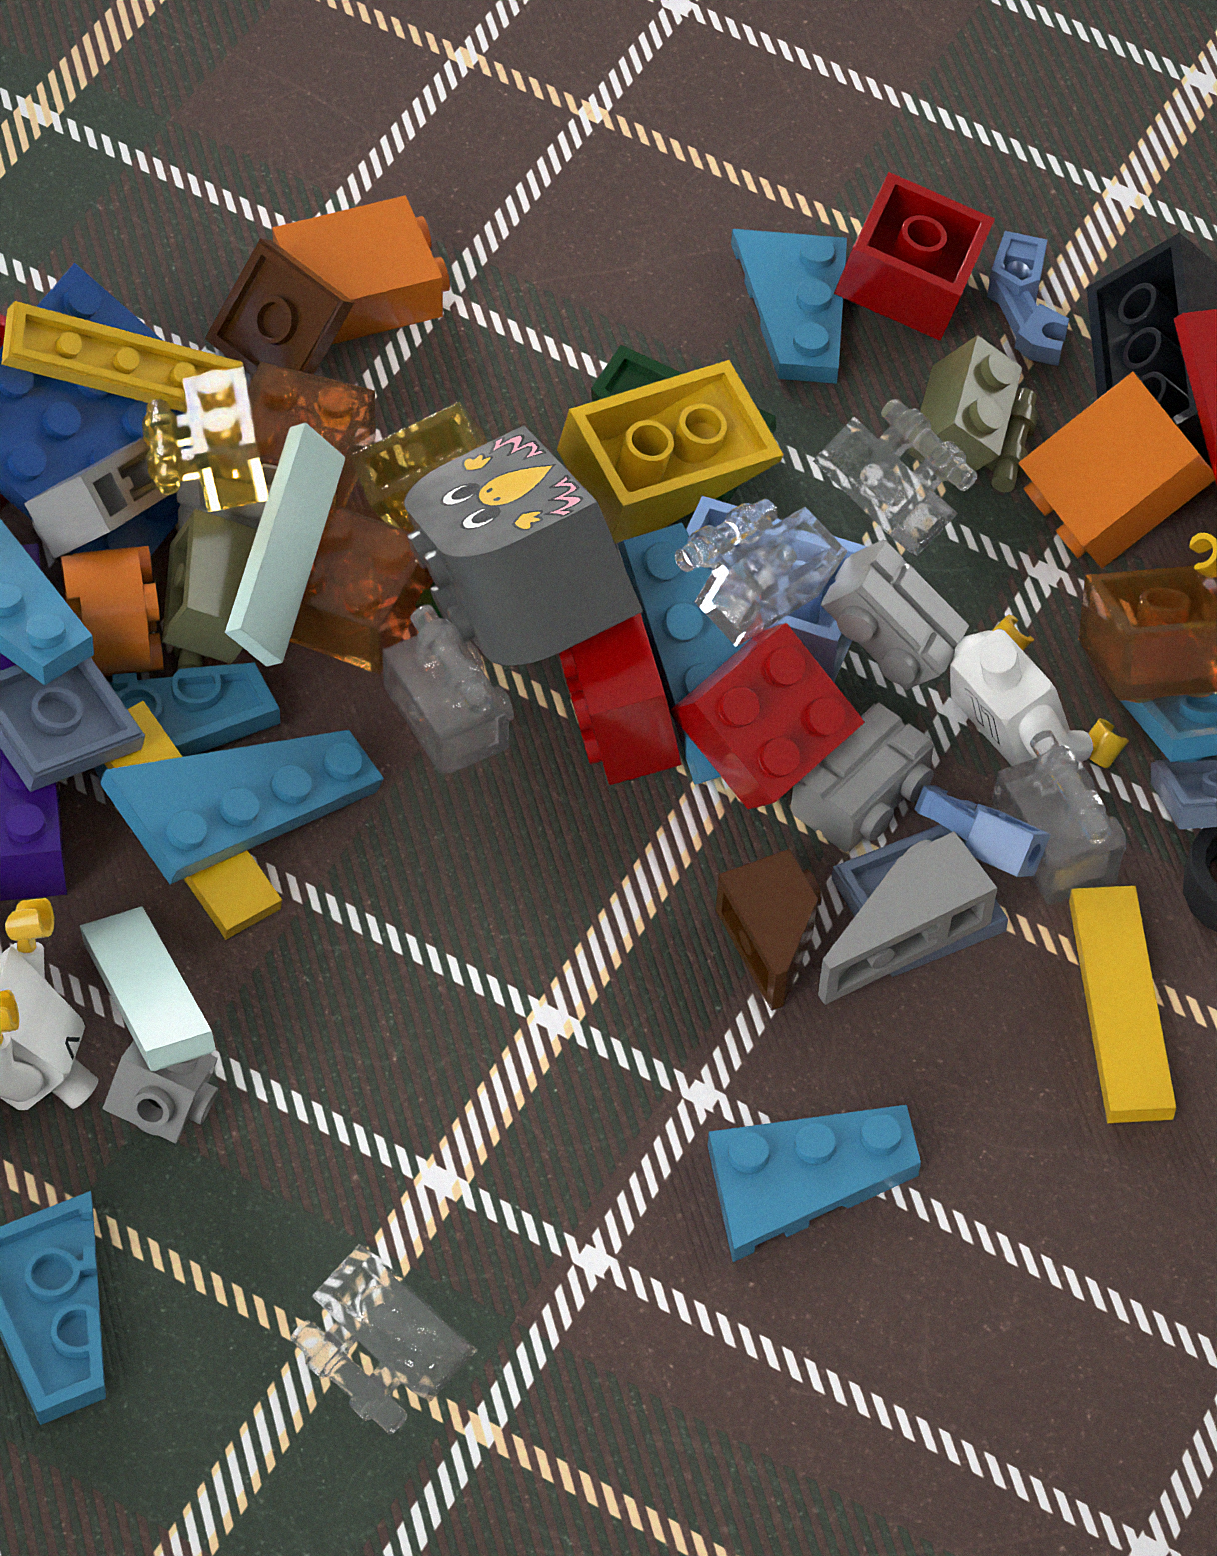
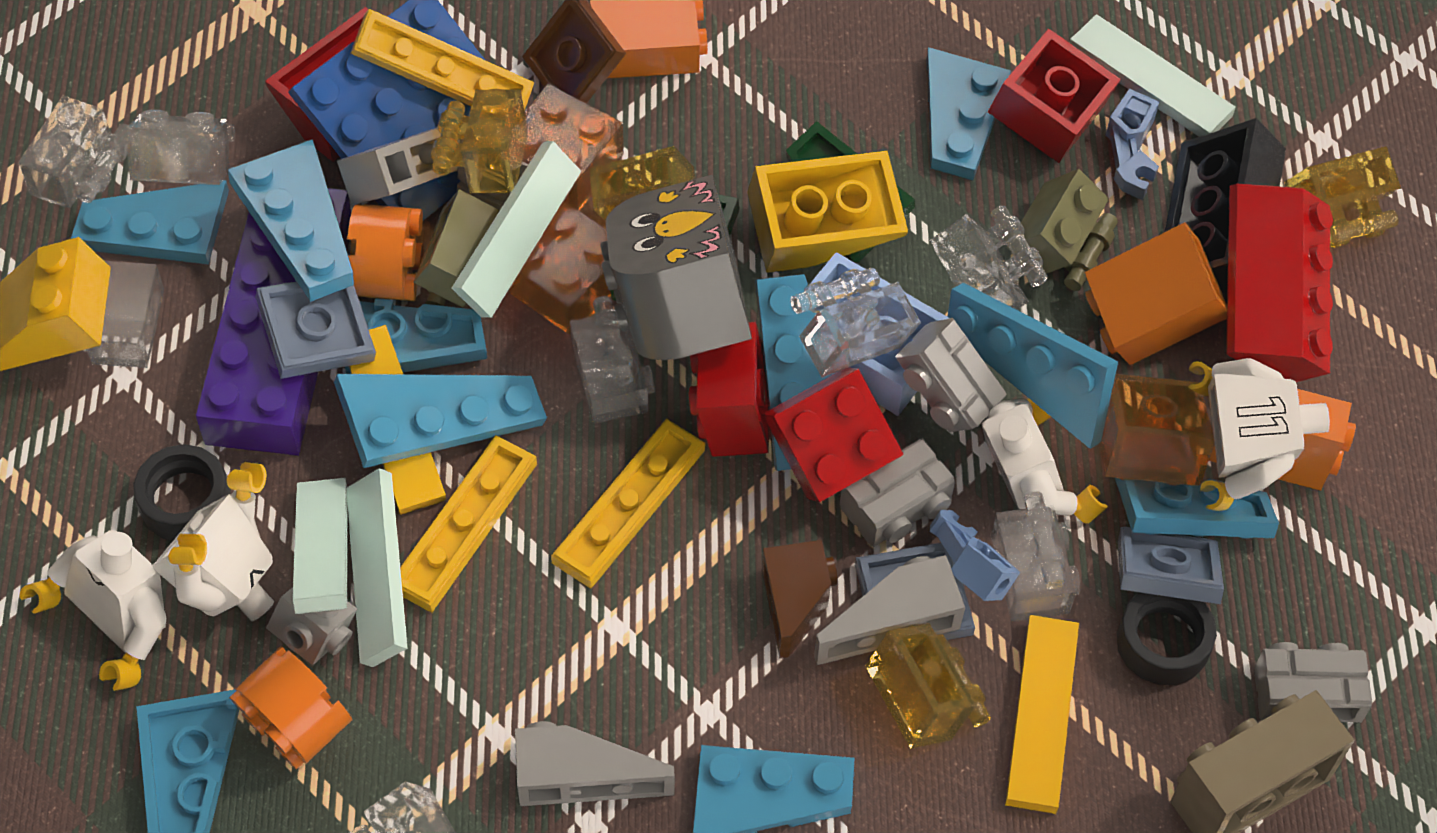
camera: 15 degrees right, 5 degrees up
(171, 1194) = (290, 707): none -> orange brick
(248, 1062) = (376, 568): none -> light aqua tile
(314, 932) = (464, 522): none -> yellow tile
(520, 863) = (628, 503): none -> yellow tile
(562, 1190) = (574, 766): none -> light grey slope
(968, 998) = (925, 685): none -> clear yellow brick
(1006, 578) = (1044, 364): none -> dark azure wing
(1070, 229) = (1153, 76): none -> light aqua tile

